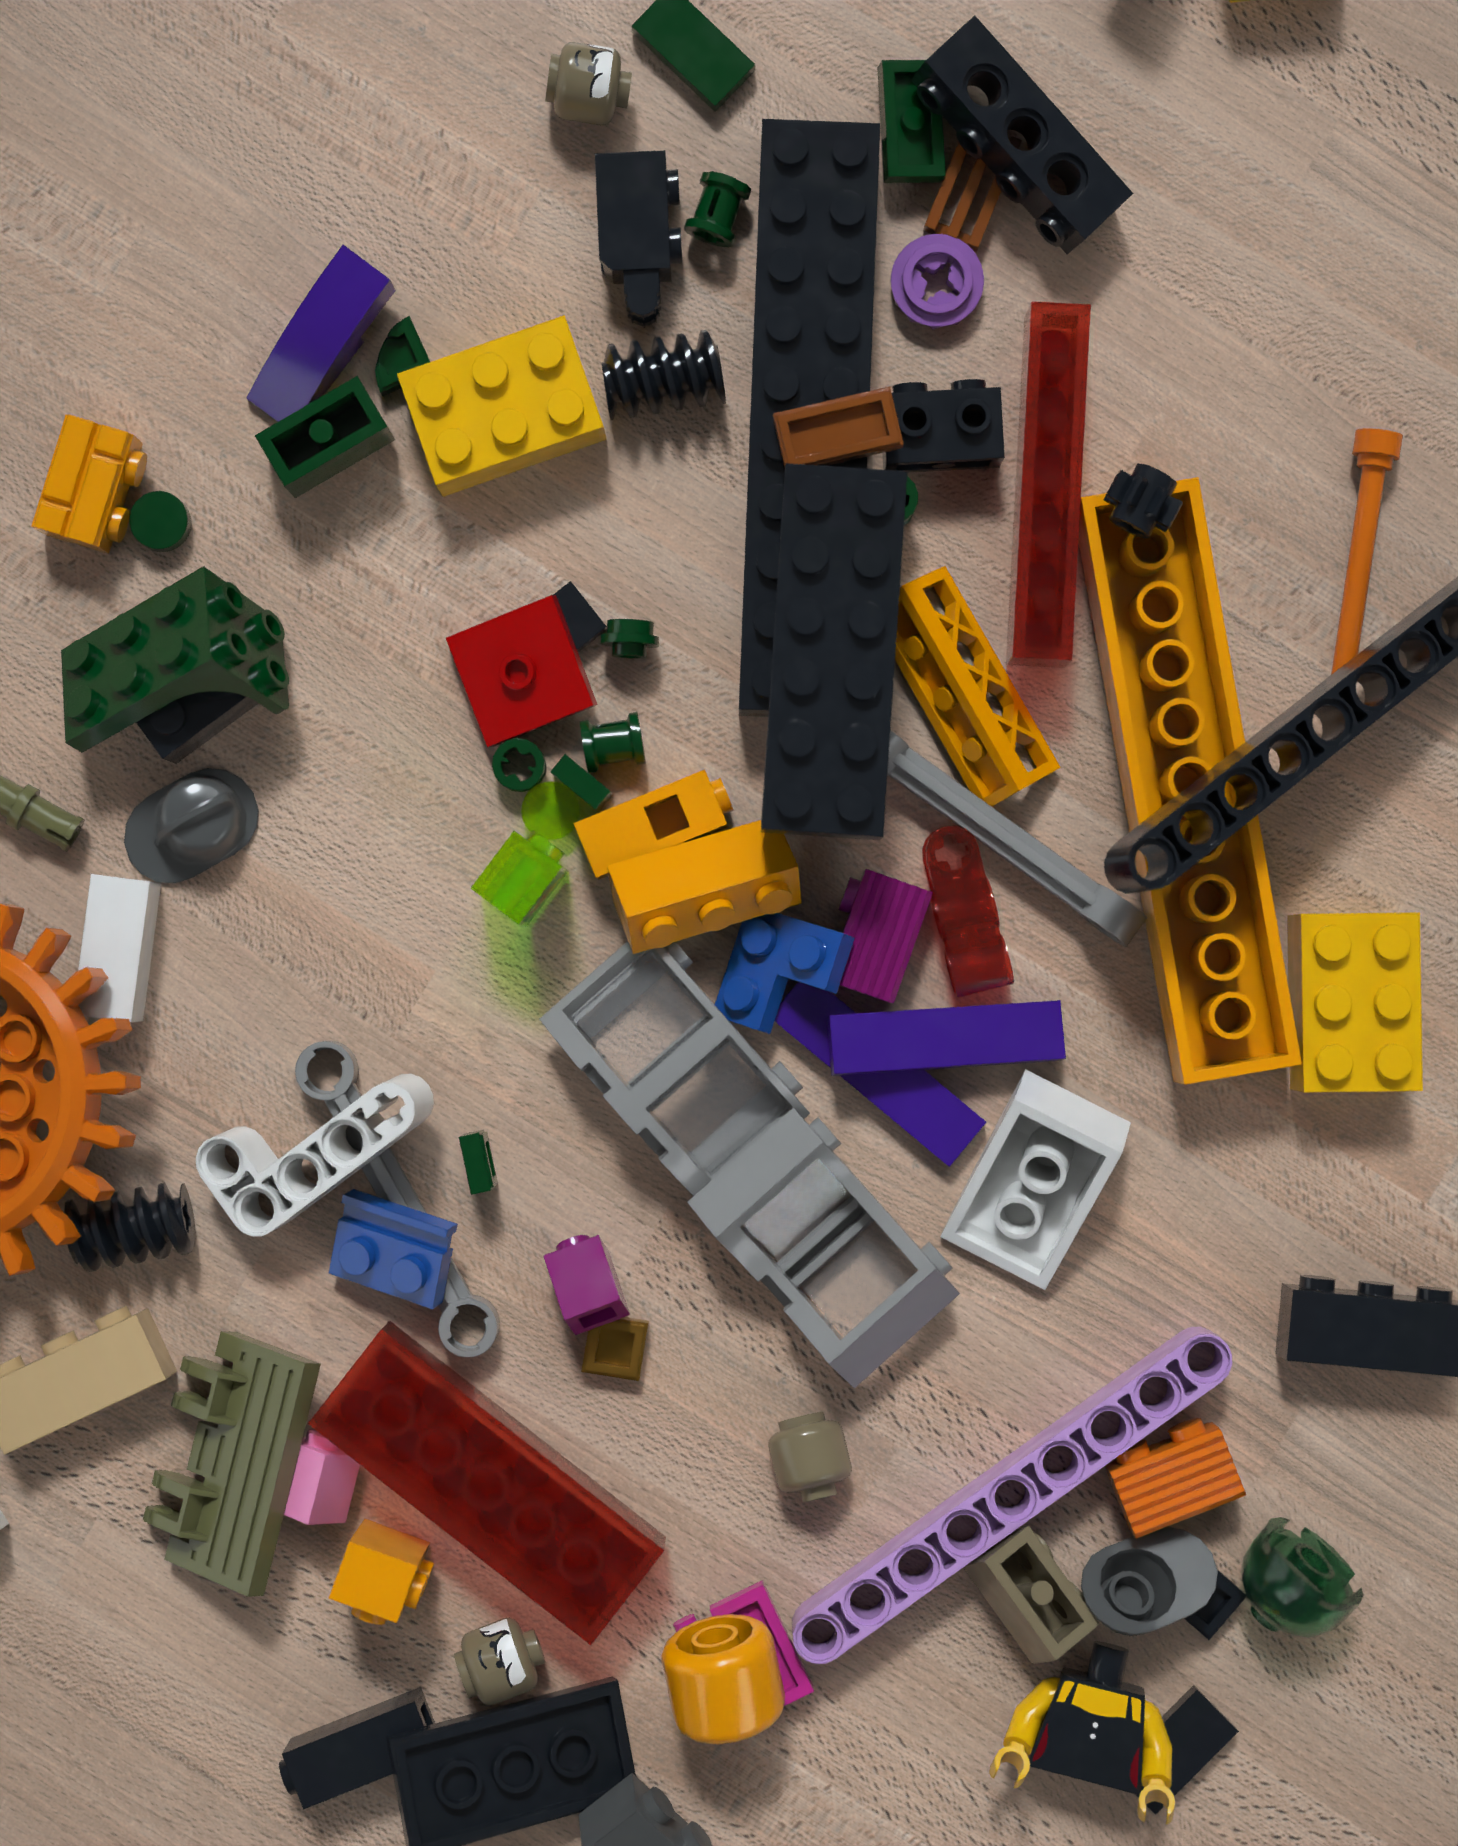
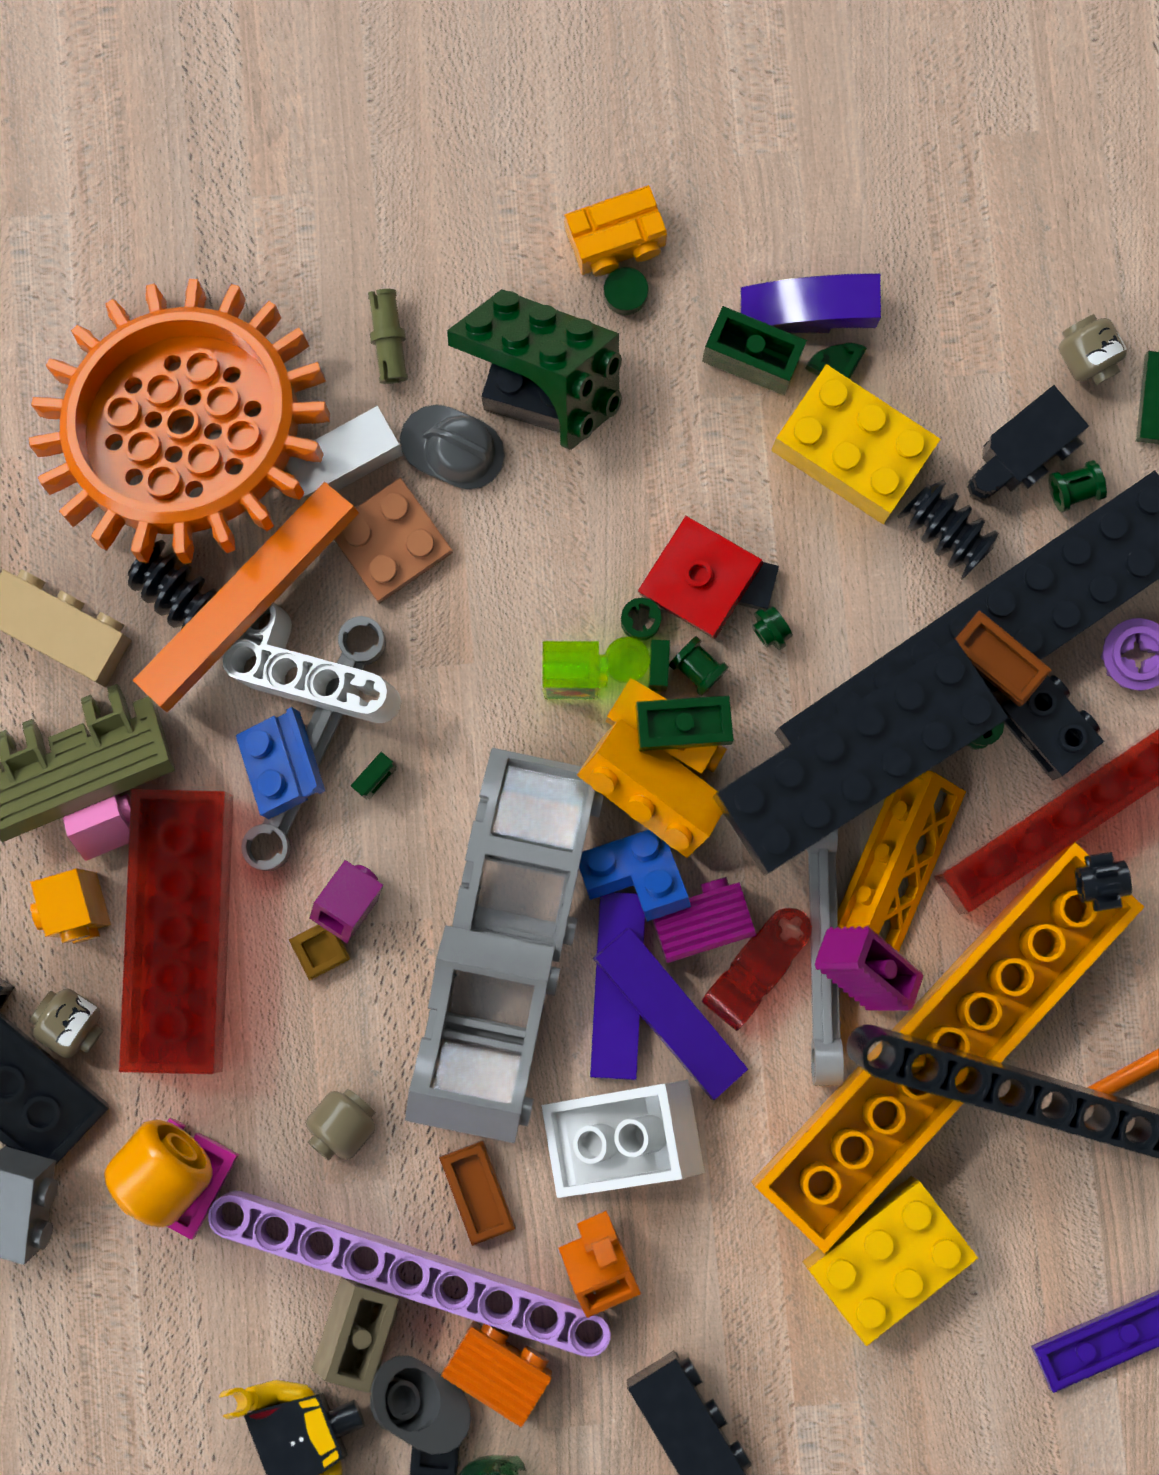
camera: 50 degrees right, 5 degrees down
(193, 1159) = (245, 597): none -> orange tile
(242, 964) = (392, 541): none -> nougat plate
(662, 804) = (684, 723): none -> dark green plate
(980, 1366) = (477, 1192): none -> dark orange tile
(1052, 804) = (868, 969): none -> magenta brick
(1142, 1299) = (597, 1264): none -> orange piece

